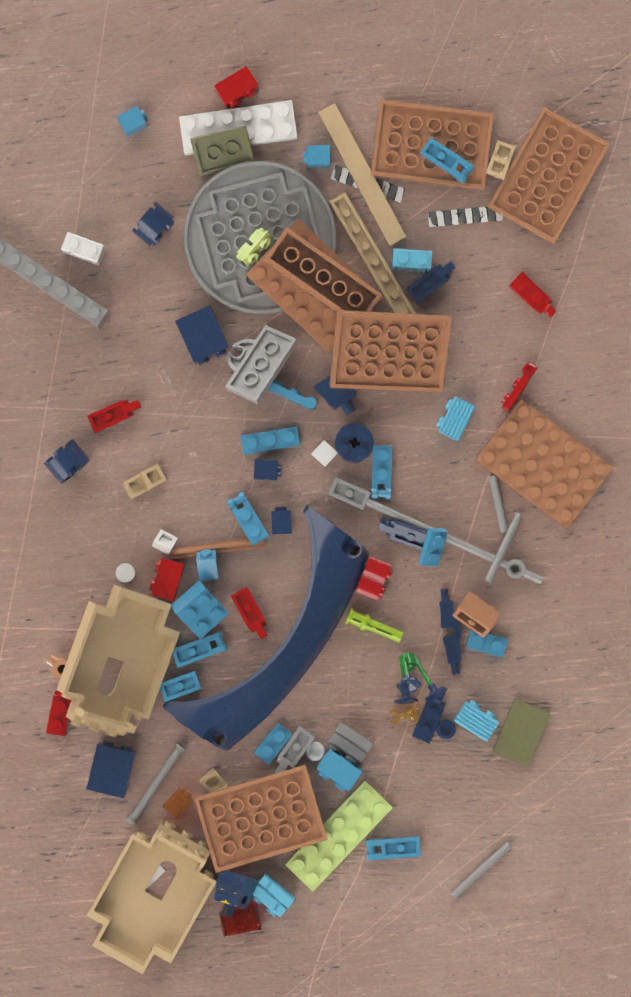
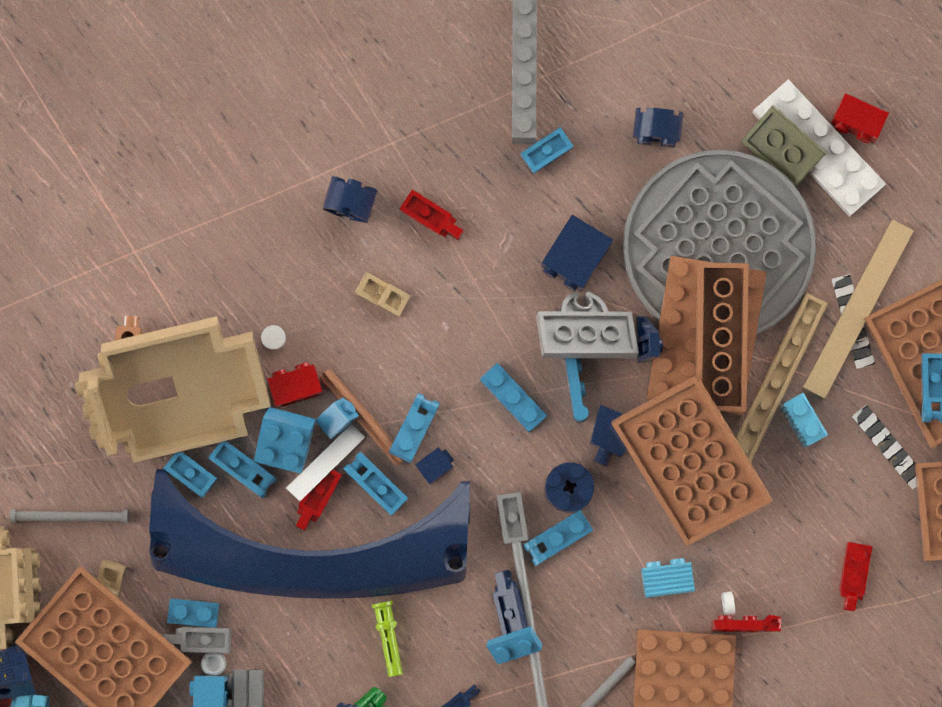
camera: 55 degrees right, 5 degrees down
(57, 718) = (68, 370): red hinge -> none
(83, 248) = (583, 71): white brick -> none
(111, 769) = (55, 459): dark blue brick -> none
(120, 308) = (547, 150): none -> dark azure plate
(133, 121) = (751, 35): dark azure brick -> none
(164, 542) = (332, 356): white plate -> none
(178, 802) = (65, 552): clear orange brick -> none
(231, 592) = (325, 462): none -> white sticker
(249, 254) = (716, 248): yellowish green hinge -> none
(266, 470) = (479, 414): dark blue brick -> none
(268, 568) = (376, 484): none -> dark azure plate
(291, 326) = (647, 340): none -> dark blue wing
(317, 156) = (844, 249): dark azure brick -> none
(324, 453) = (537, 463): white tile -> none
(373, 578) = (439, 603): red brick -> none
(430, 282) = (794, 455): dark blue hinge -> none
(497, 390) = (728, 603): none -> white tile

